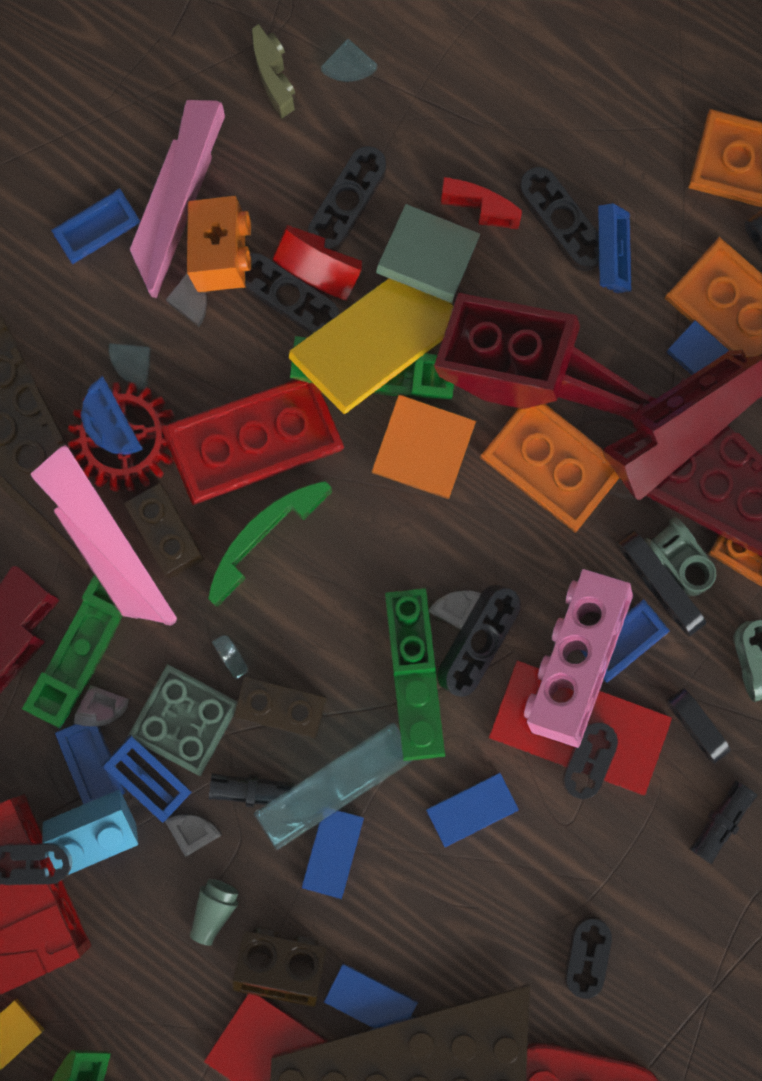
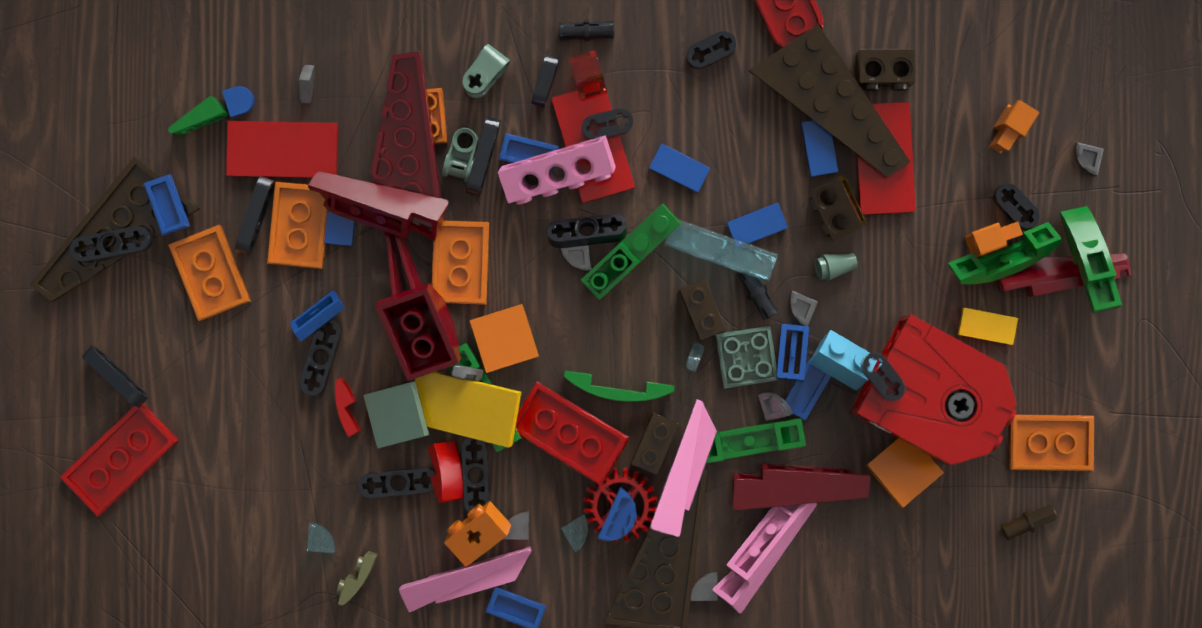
camera: 130 degrees left, 5 degrees up
(422, 364) = (467, 372): none -> flat silver tile
(669, 782) = (587, 74): none -> clear red brick

